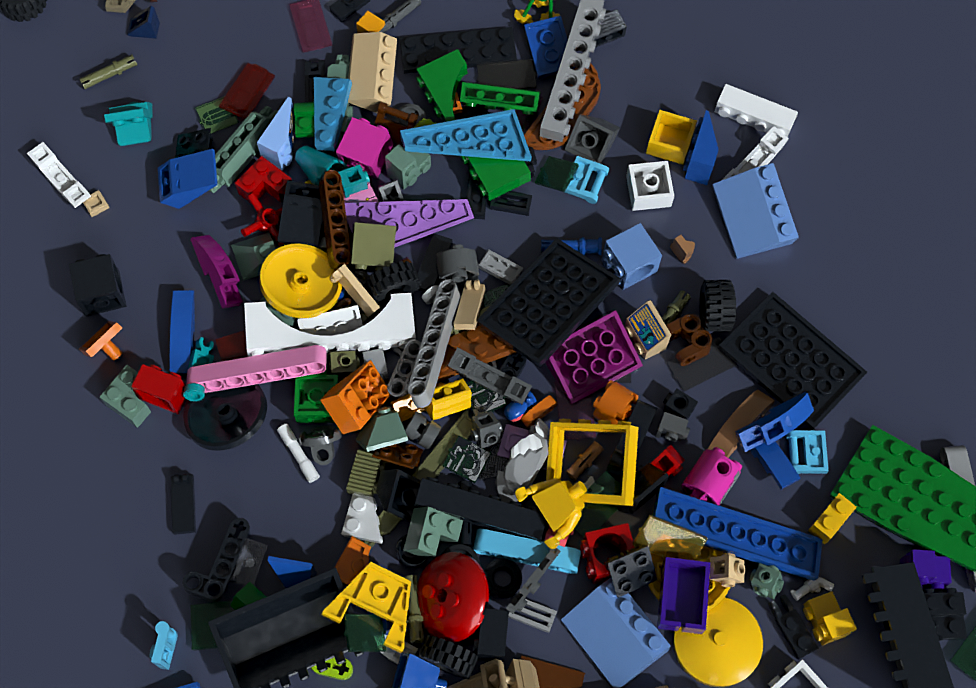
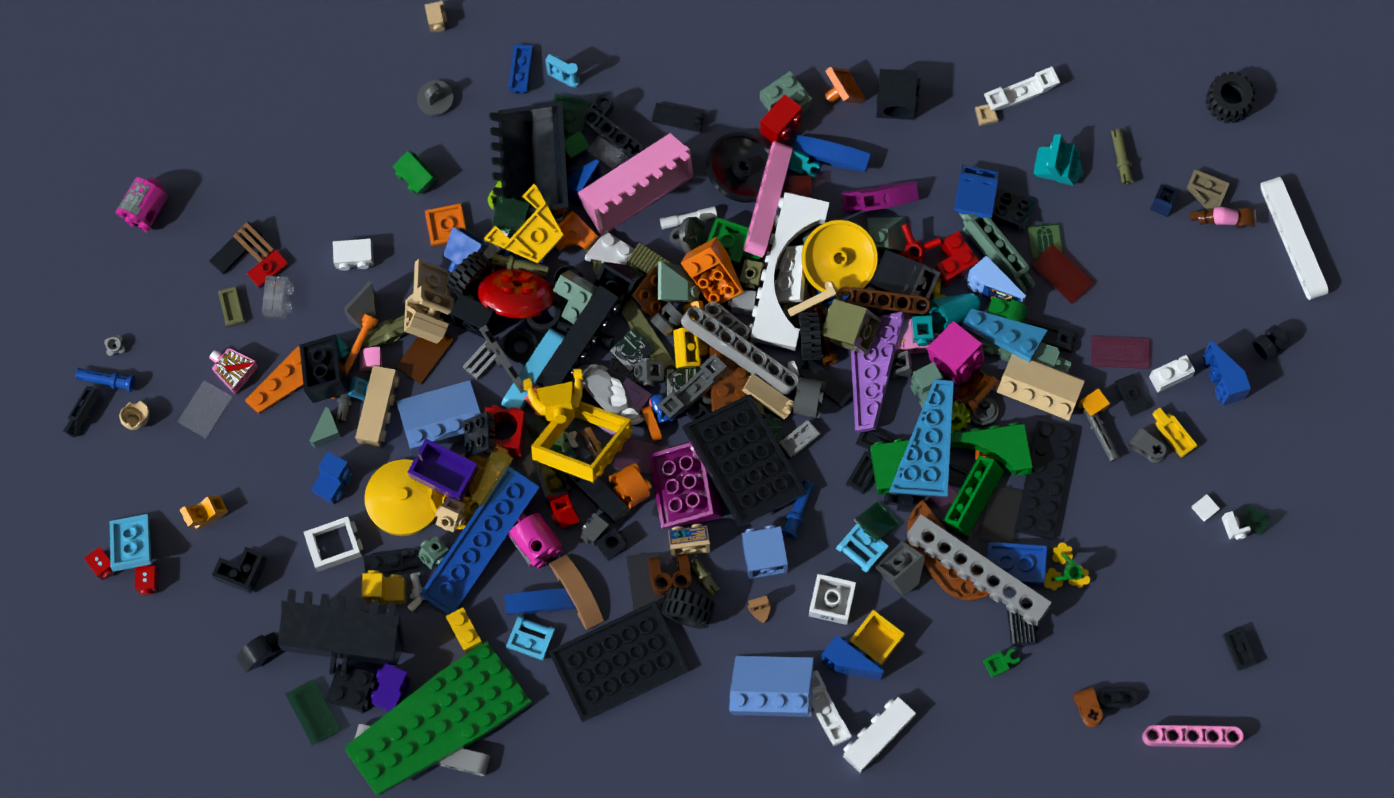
camera: 115 degrees right, 5 degrees up
(193, 392) = (768, 146): teal tile -> none
(279, 508) = (637, 183): none -> bright pink piece
(646, 38) = (998, 663): none -> green plate
(776, 424) = (561, 619): blue slope -> none

